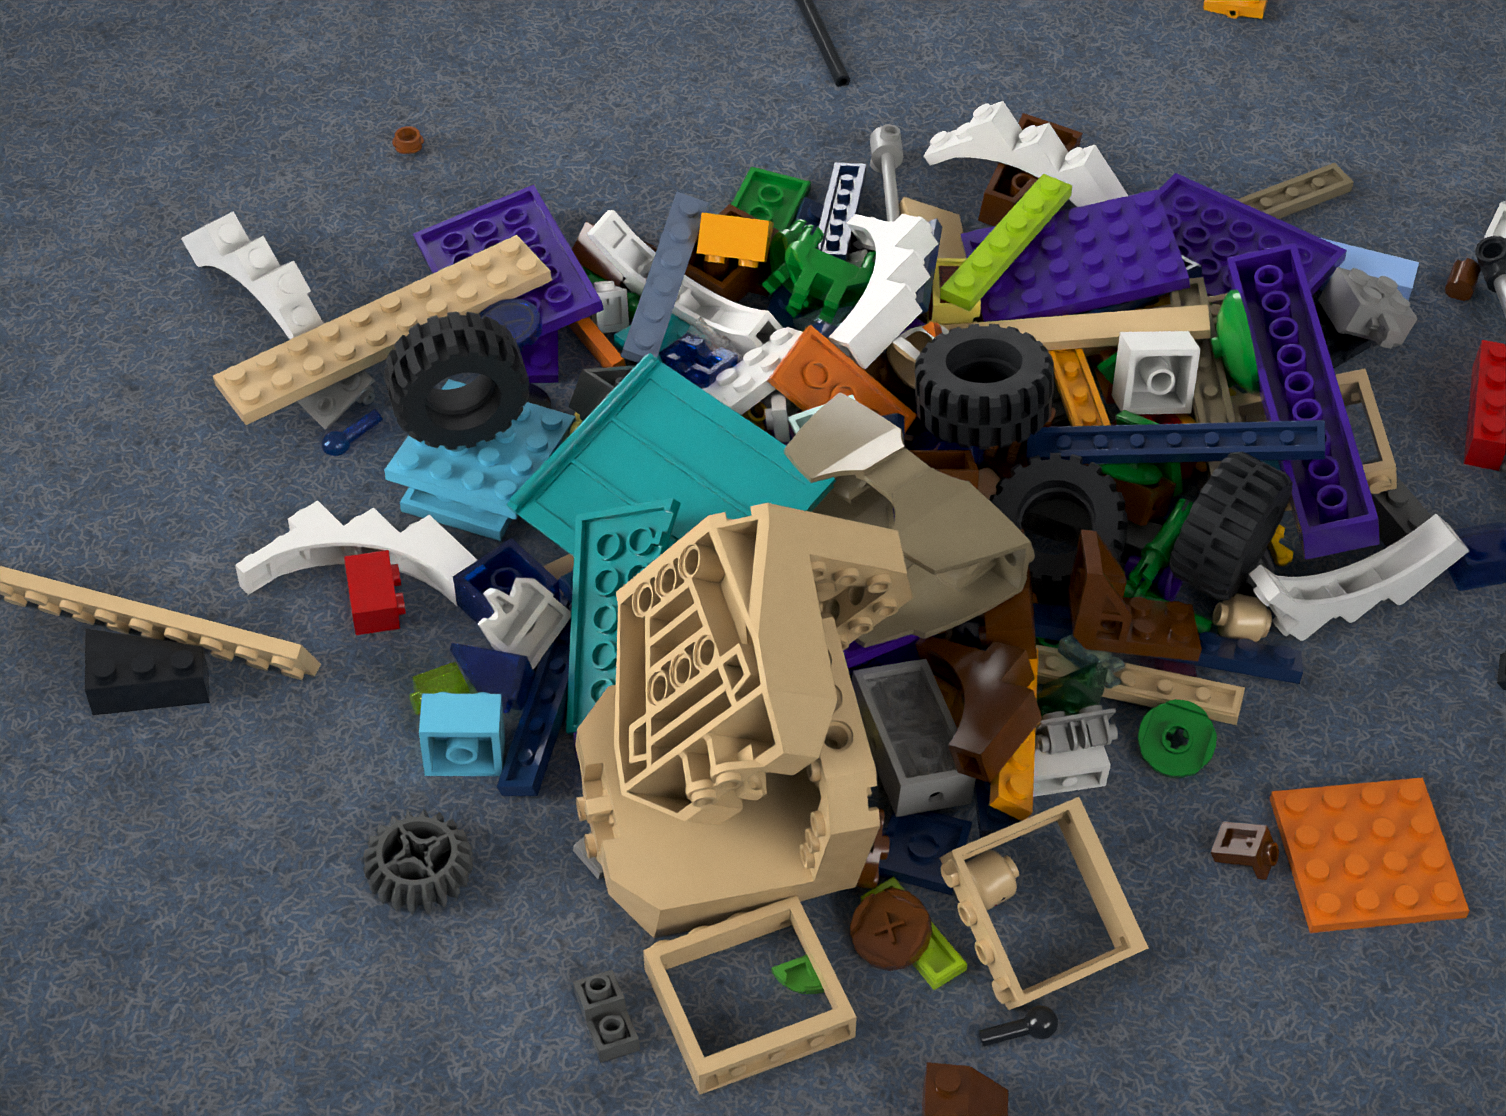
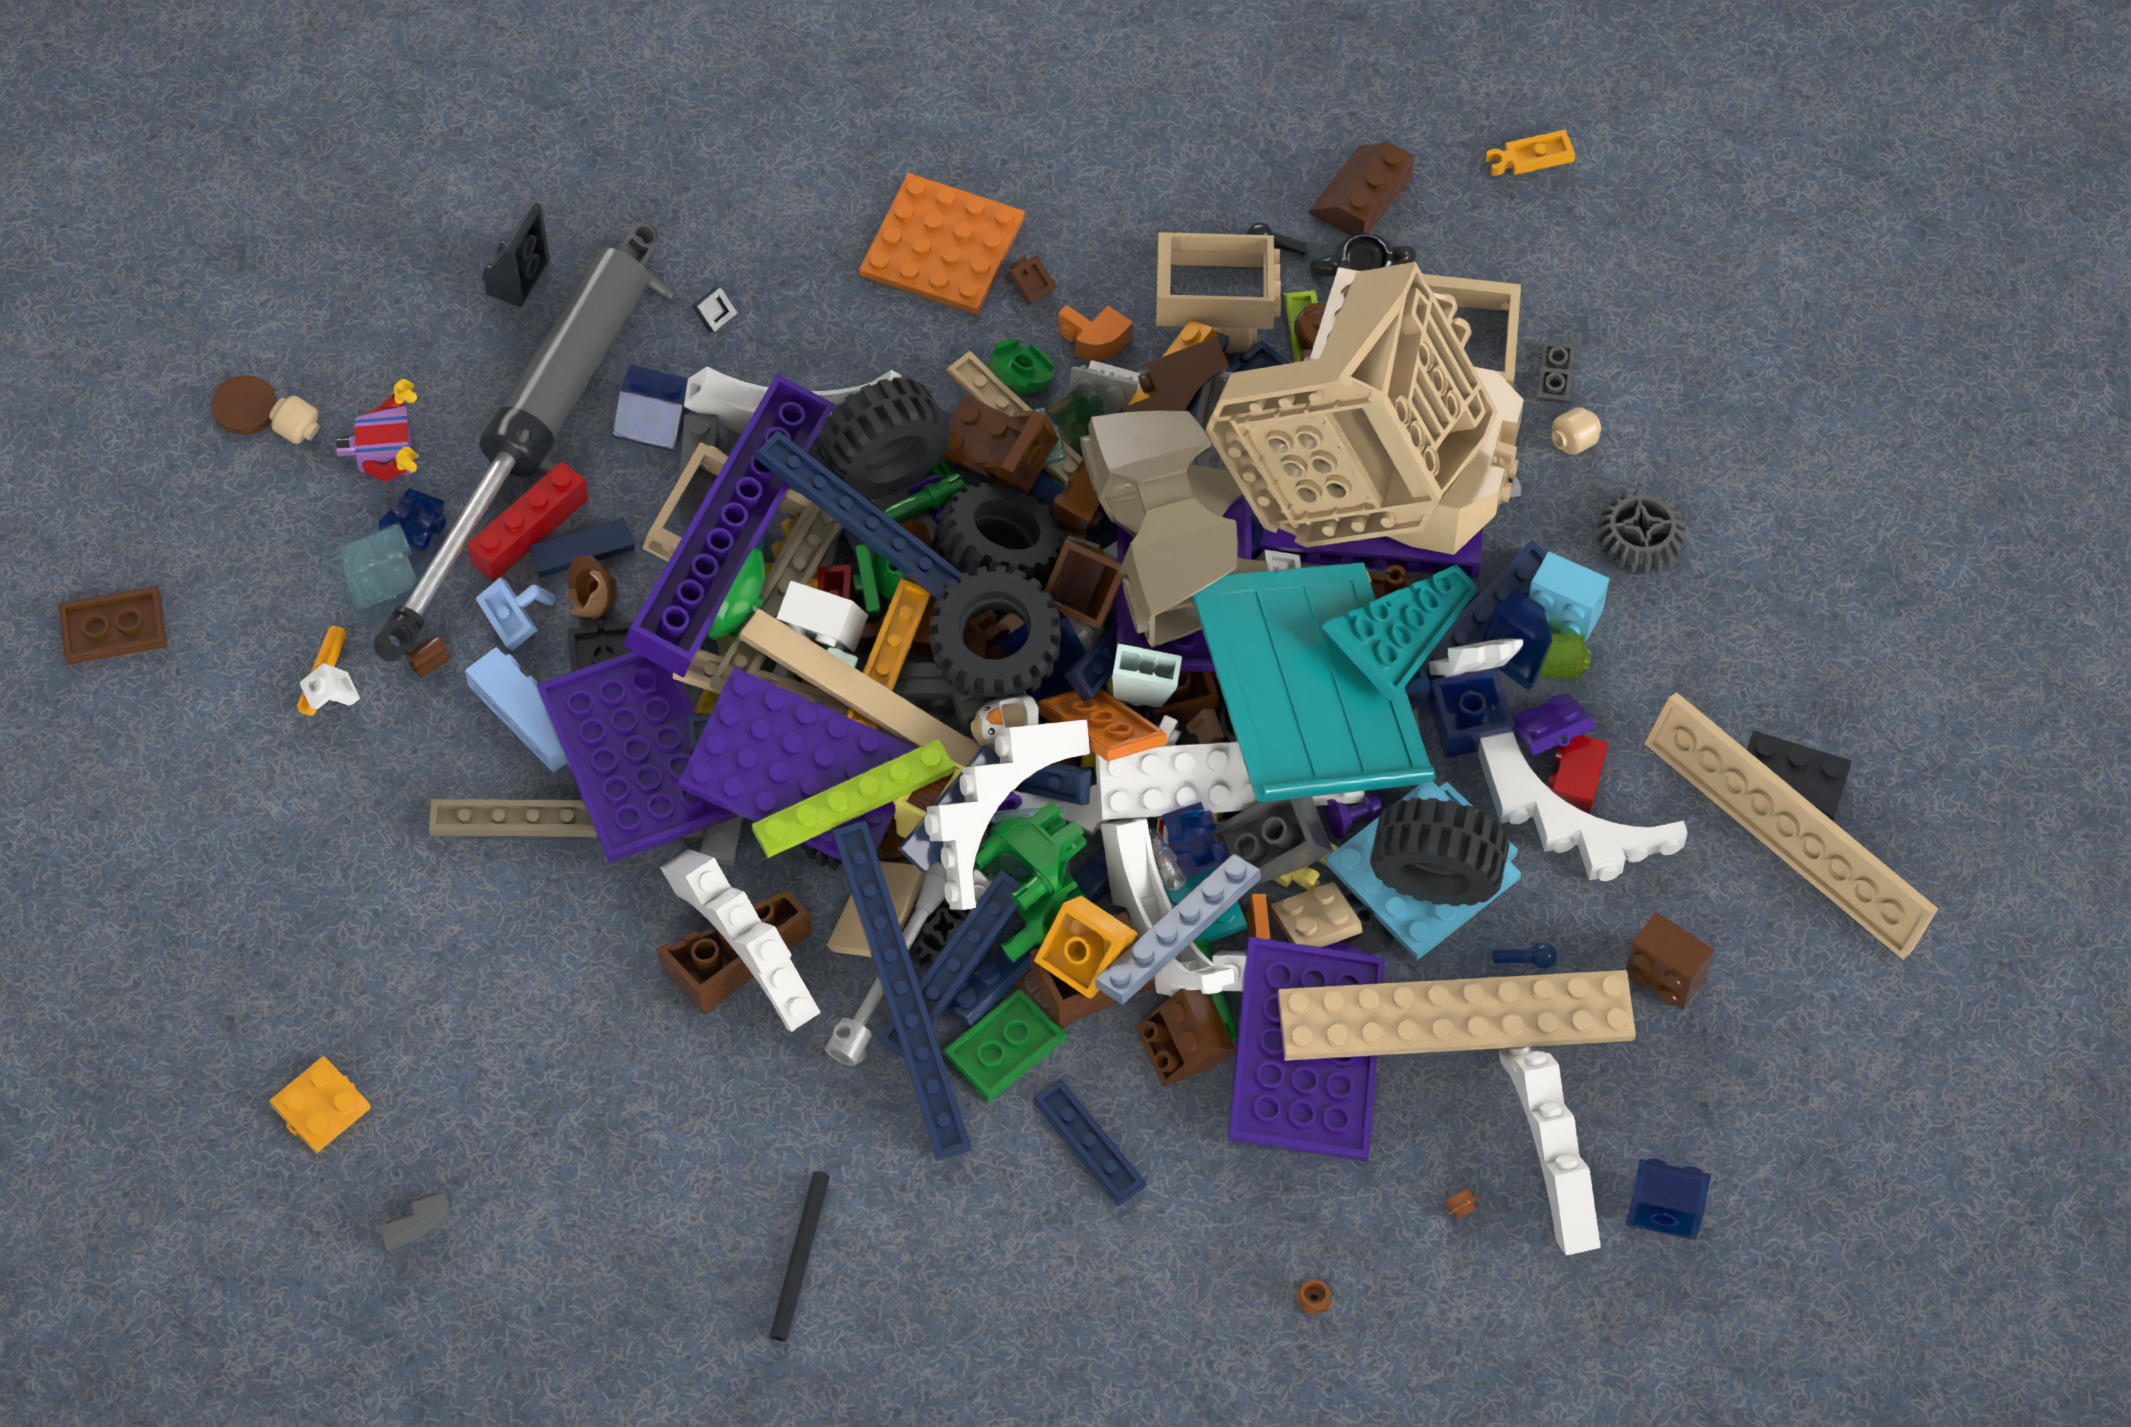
camera: 150 degrees left, 10 degrees up
(132, 277) = (1668, 1199): none -> clear blue brick
(206, 450) = (1669, 961): none -> reddish brown brick
(318, 236) = (1461, 1203): none -> dark orange plate
(419, 610) = (1544, 725): none -> dark purple plate
(518, 317) = (1346, 954): clear blue tile -> none
(545, 940) = (1575, 430): none -> tan head
(554, 373) = (1317, 917): none -> tan plate
(649, 172) = (1089, 1142): none -> dark blue tile
(873, 175) = (901, 991): none -> dark blue plate
(897, 1026) = (1363, 253): none -> black piece
(1128, 809) = (1095, 339): none -> orange brick
(1367, 307) = (559, 633): light grey hinge -> none
(1382, 376) = (590, 588): none -> reddish brown piece
(1428, 417) = (597, 541): none -> dark blue tile
(1429, 333) = (508, 613): none -> light blue plate

